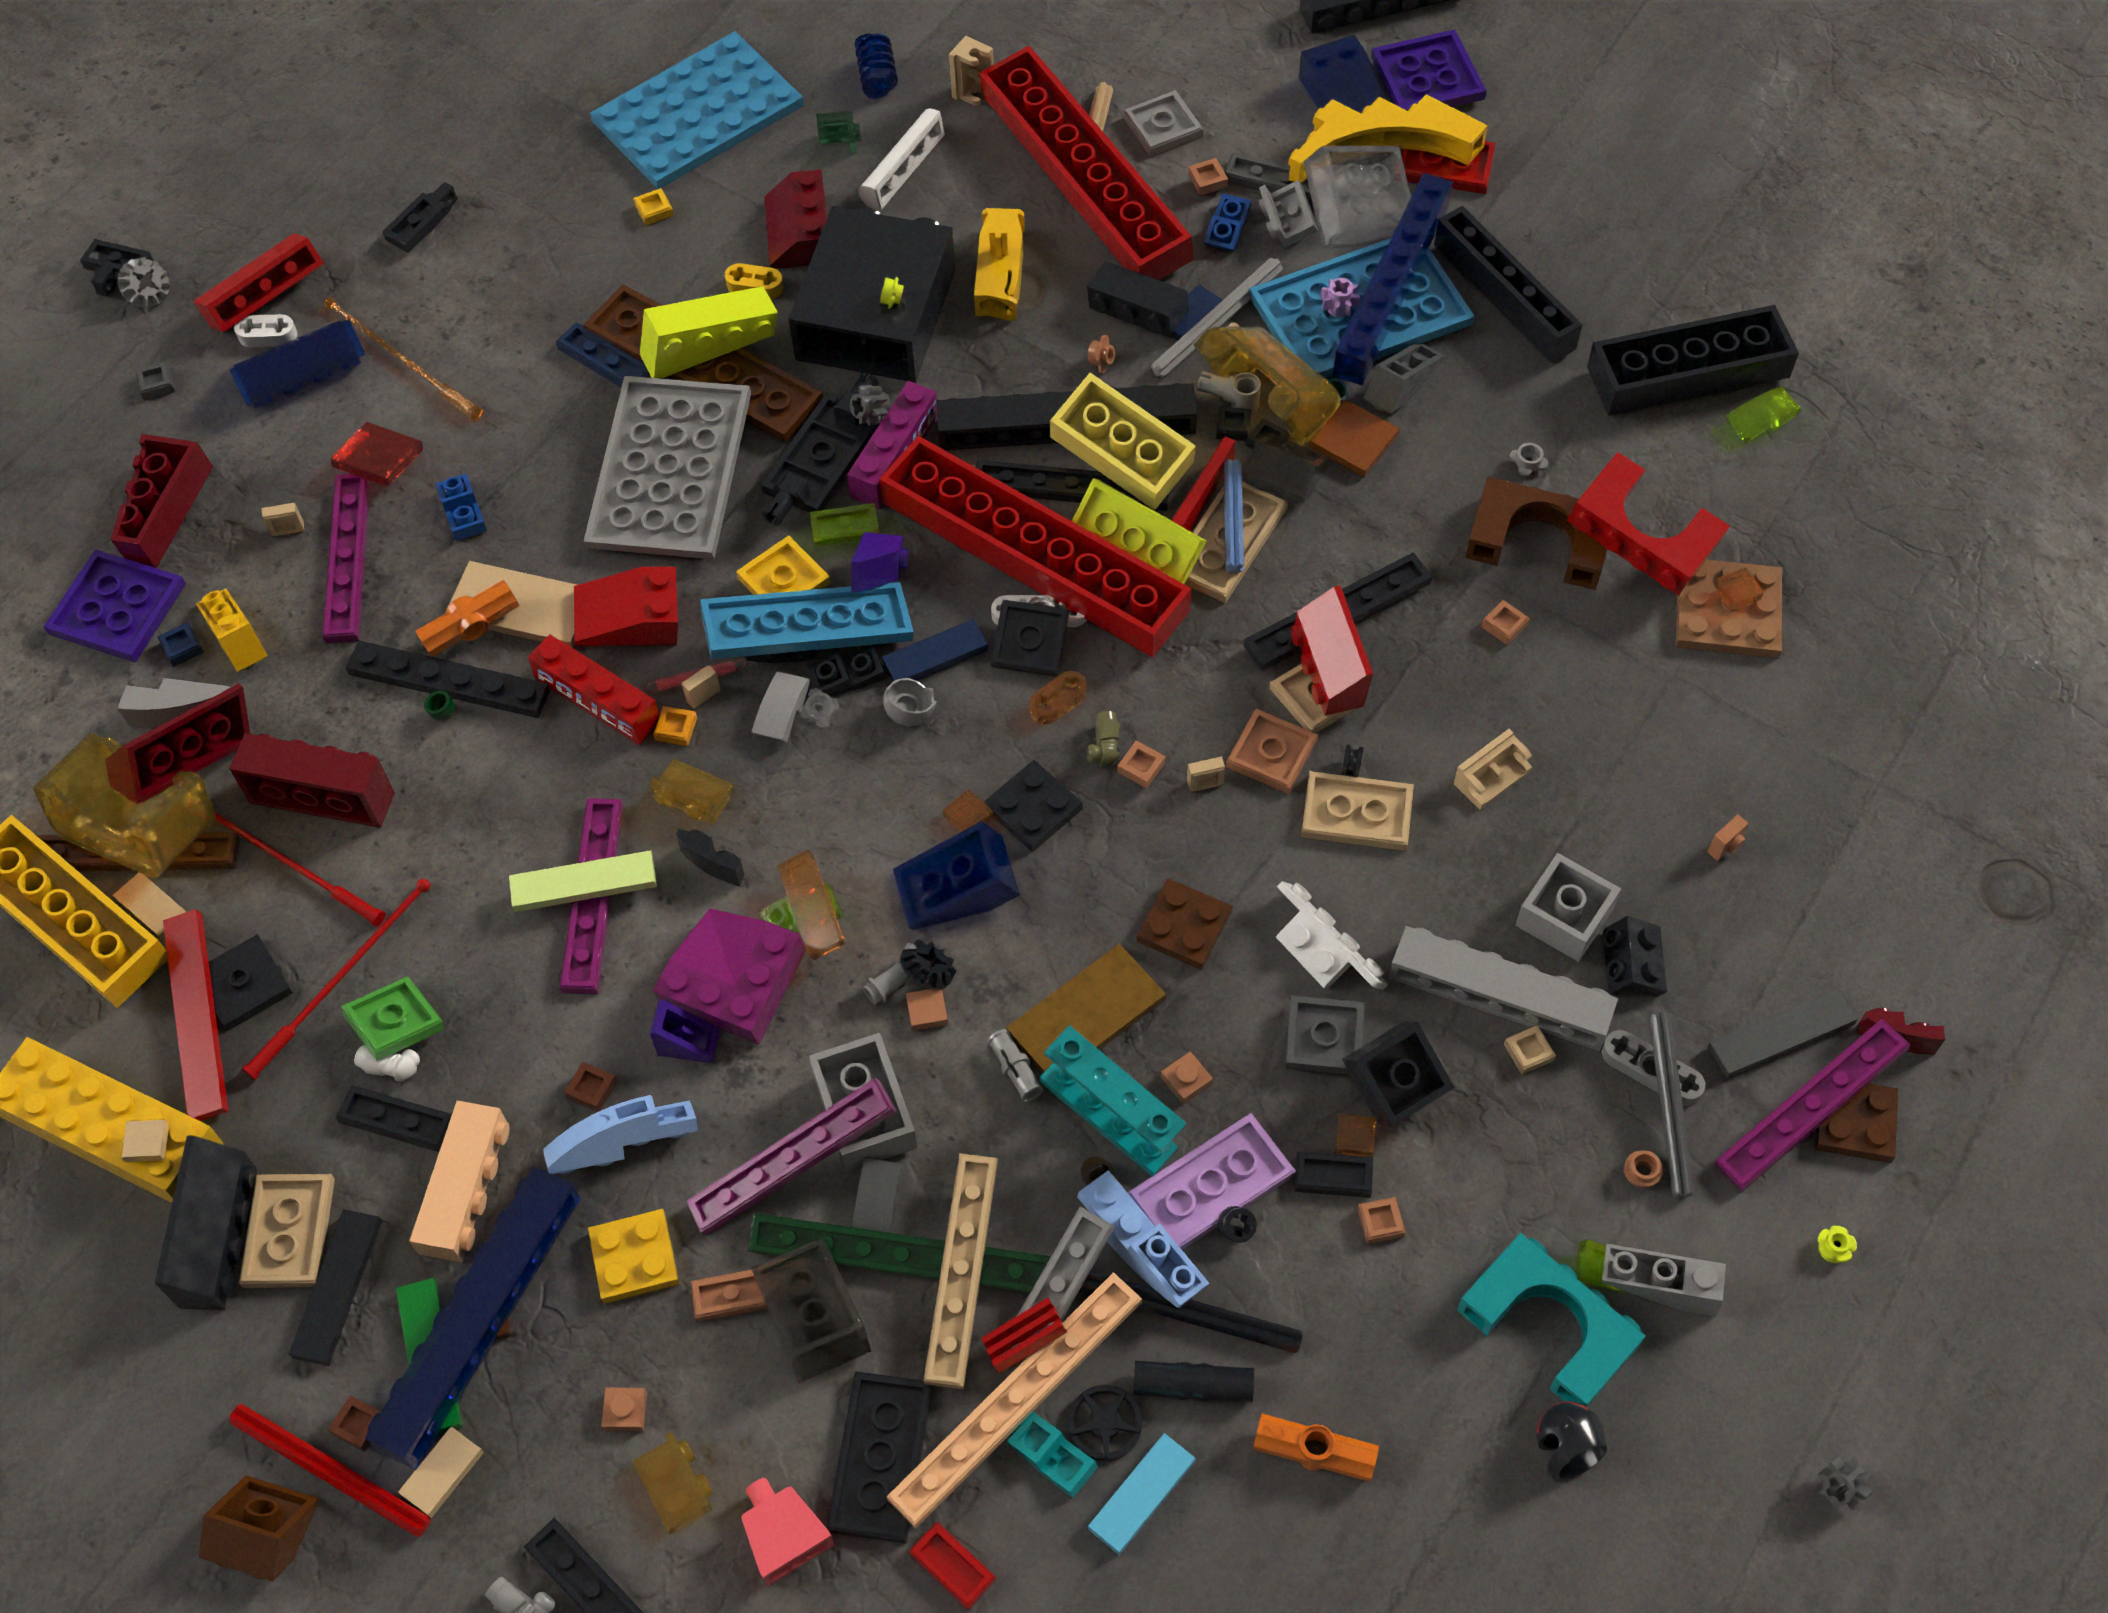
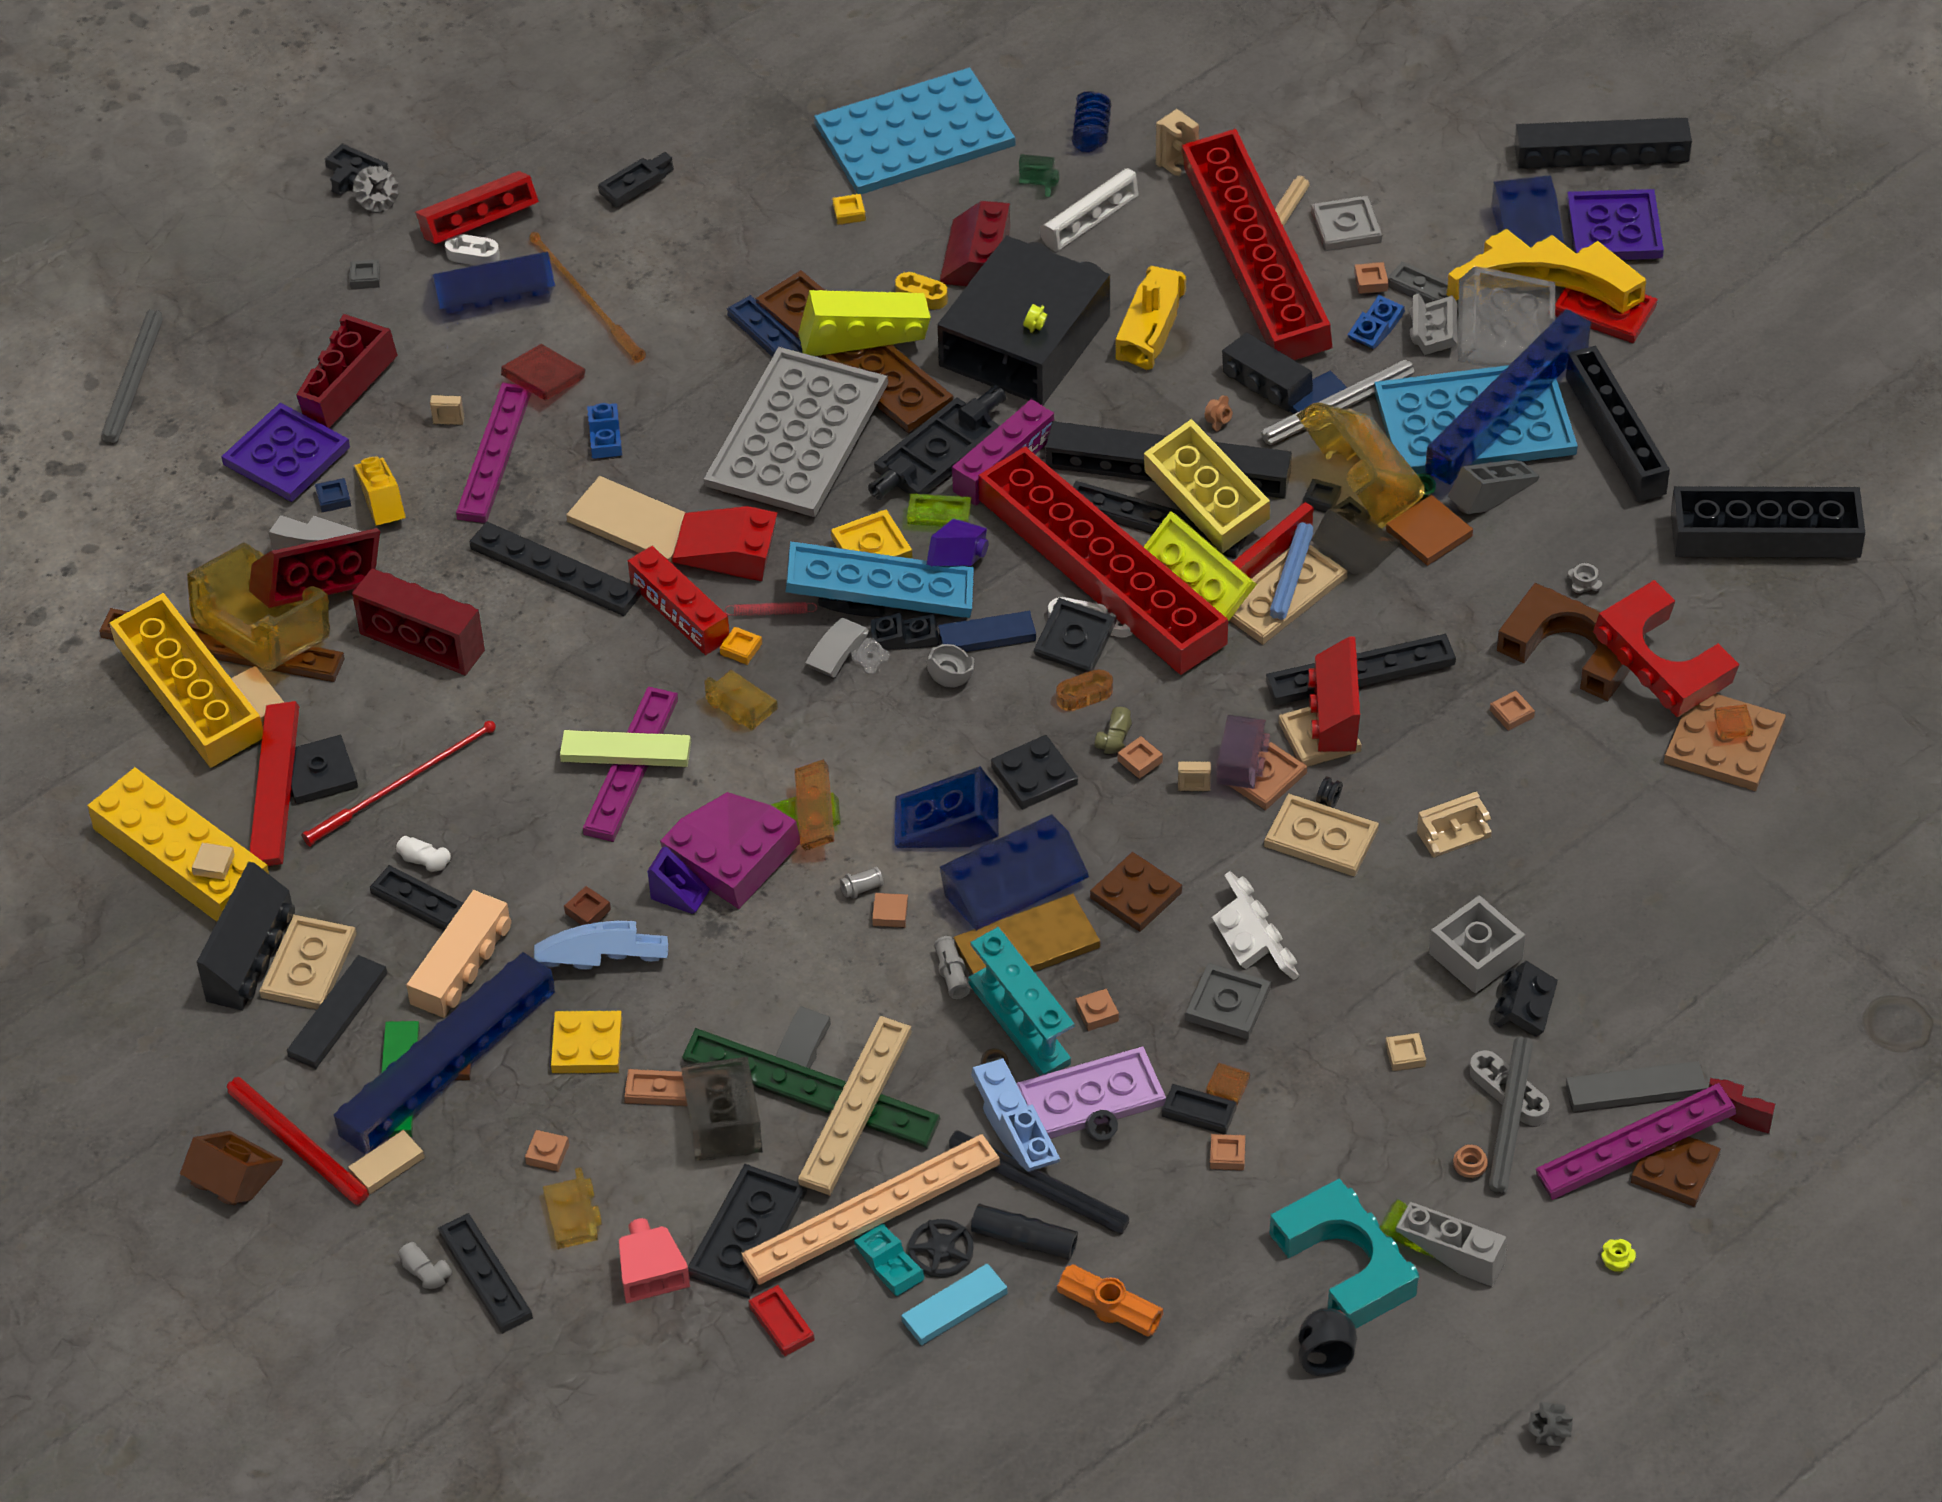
camera: 15 degrees right, 10 degrees down
(351, 901) = (443, 742): red piece -> none
(353, 1422) = (322, 1110): copper plate -> none
(392, 1018) = (436, 820): bright green tile -> none
(439, 705) = (542, 587): dark green hinge -> none
(467, 618) = (585, 520): orange piece -> none
(701, 686) = (772, 617): tan tile -> none
(701, 852) = (733, 748): black slope -> none
(791, 1156) = (738, 988): magenta tile -> none
(846, 1069) = (812, 963): light grey brick -> none
(869, 404) = (990, 412): dark grey gear -> none
(915, 964) = (890, 868): black gear -> none
(967, 811) = (973, 759): clear orange tile -> none
(1021, 1330) = (891, 1162): red tile -> none
(1050, 936) = (1013, 872): none -> clear blue slope
(1070, 1262) = (936, 1129): light grey tile -> none
(1240, 391) = (1330, 466): light grey pin -> none
(1250, 736) = (1241, 751): none -> clear purple brick
(1340, 297) = (1451, 402): lavender gear -> none
(1398, 1073) = (1277, 1037): black brick -> none
(1503, 987) = (1397, 996): light grey brick -> none
(1729, 838) = (1645, 922): nougat plate -> none
(1763, 412) = (1828, 579): clear neon green slope -> none

